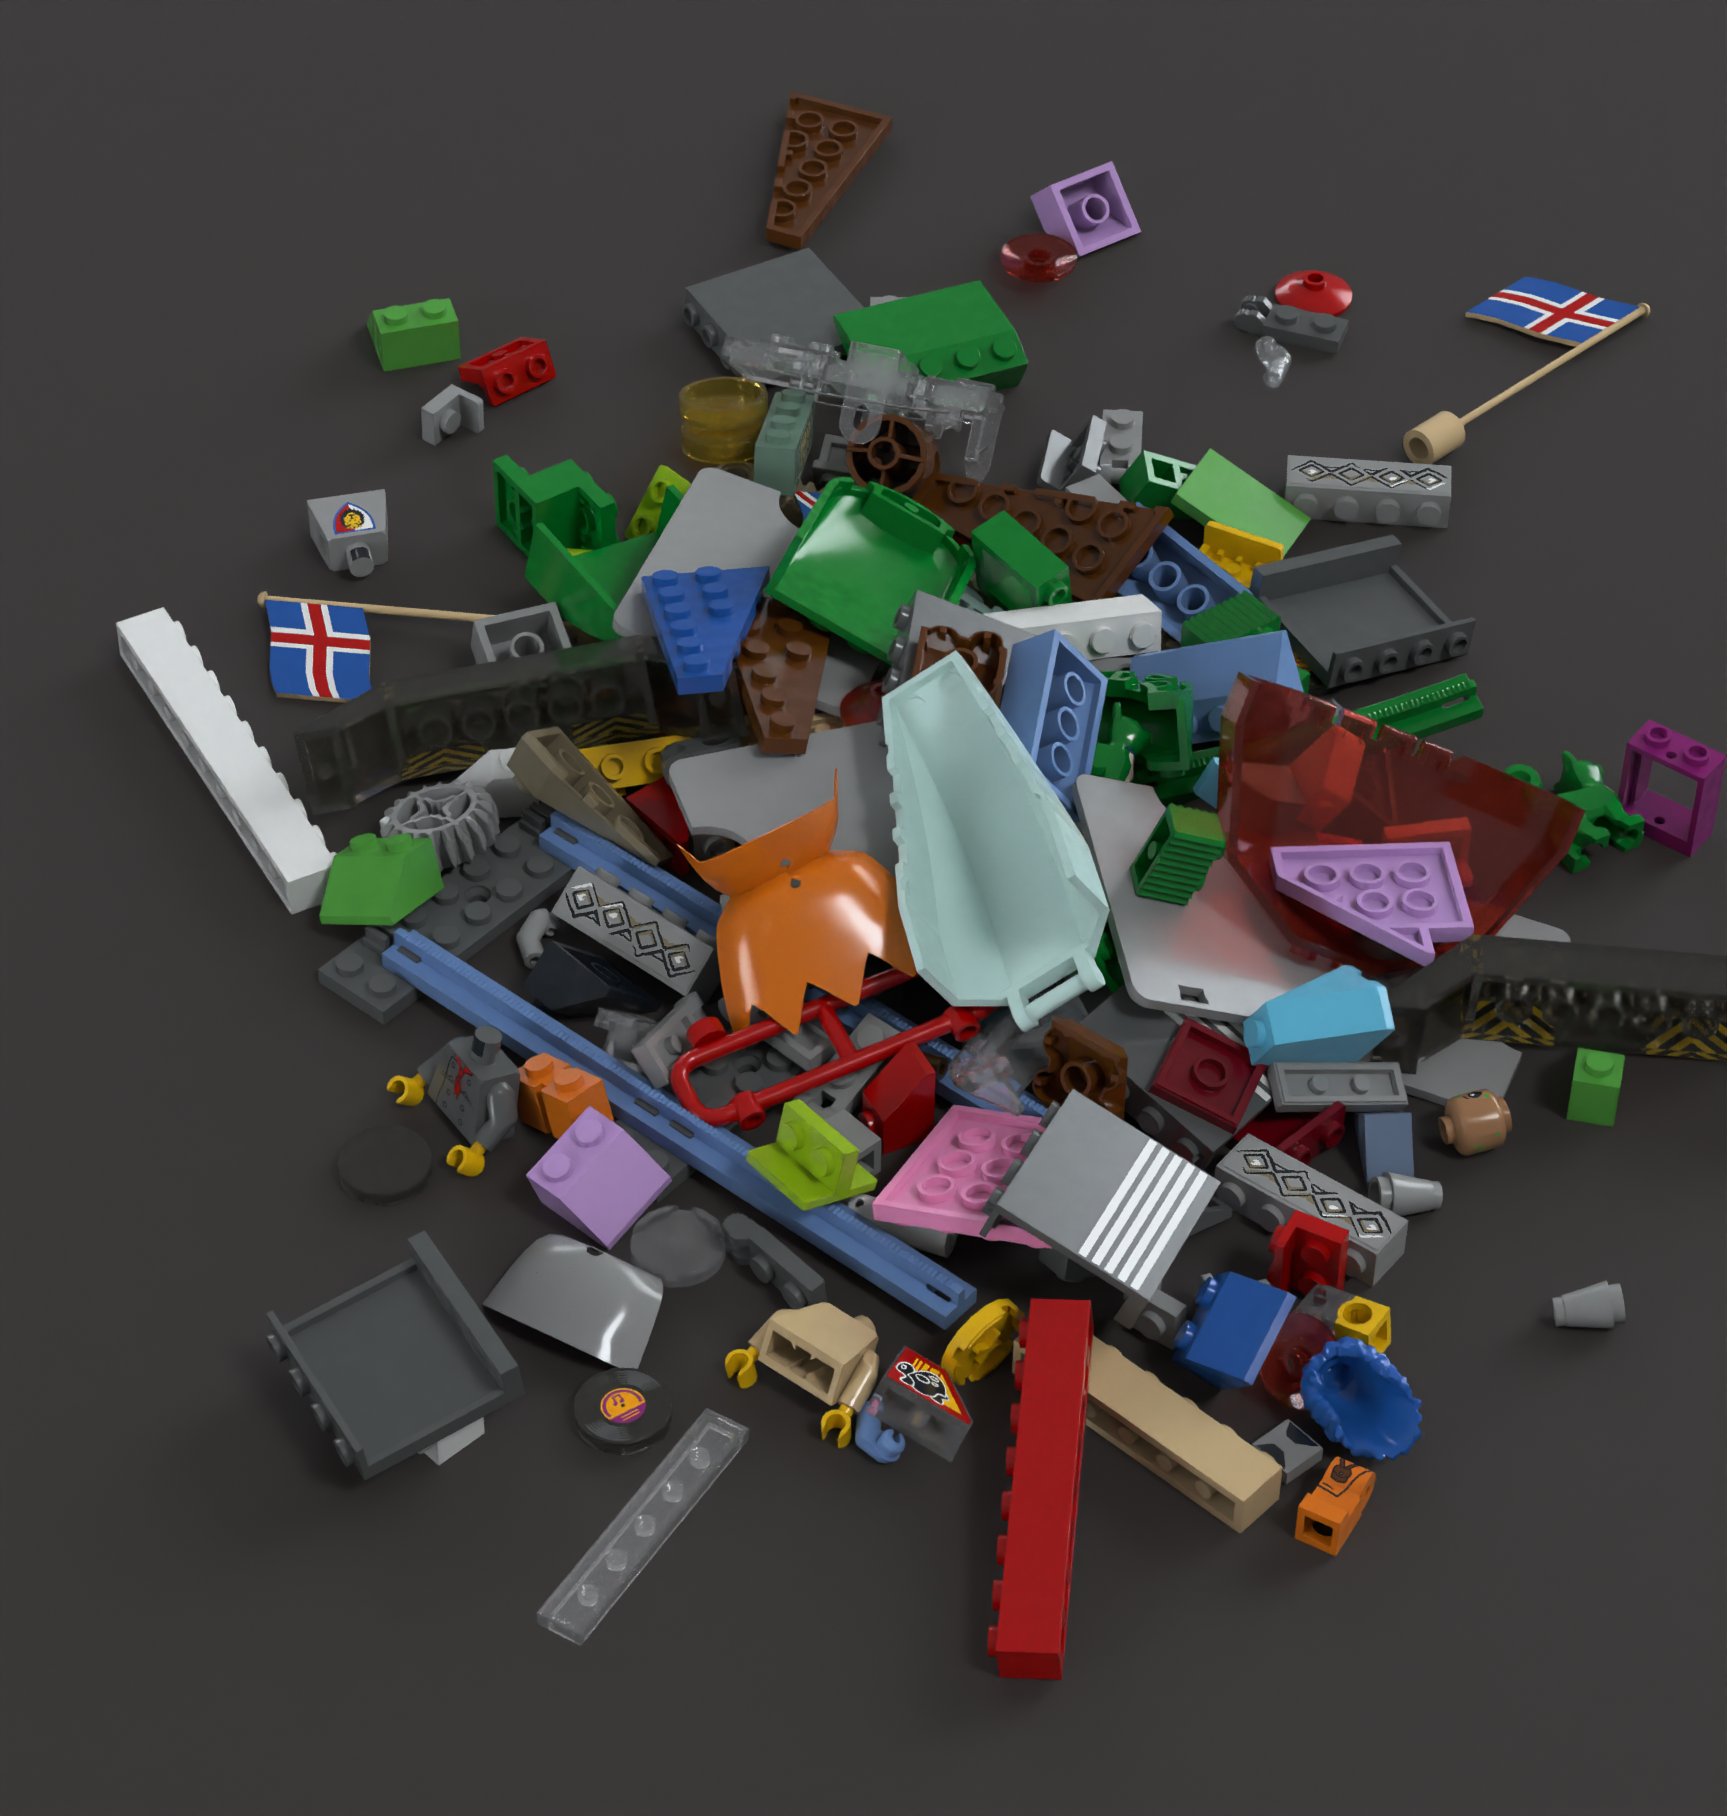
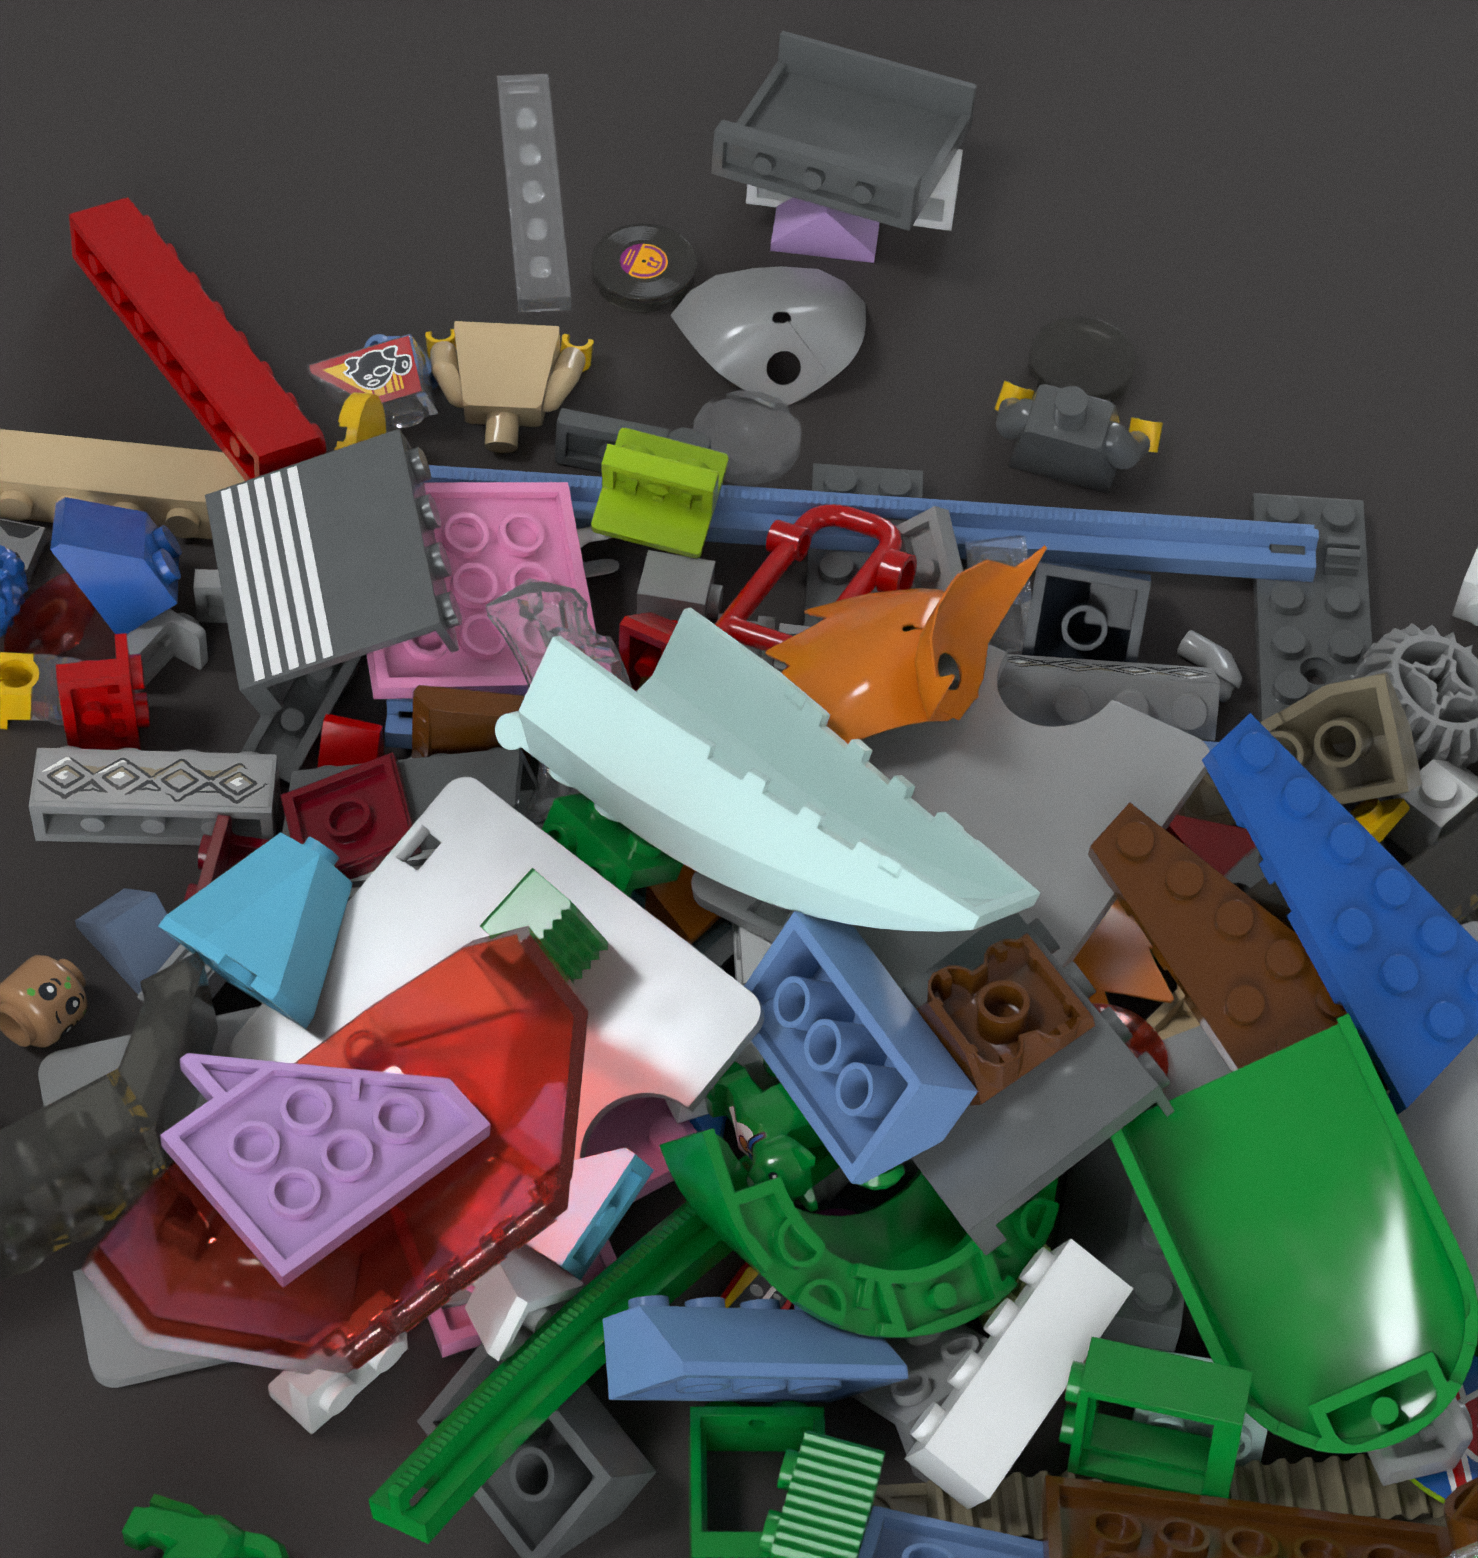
camera: 140 degrees right, 10 degrees up
(380, 880) = (1397, 582): bright green slope -> none
(556, 1094) = (962, 451): orange piece -> none
(598, 1178) = (866, 418): lavender slope -> none
(1405, 1193) = (68, 877): light grey cone -> none

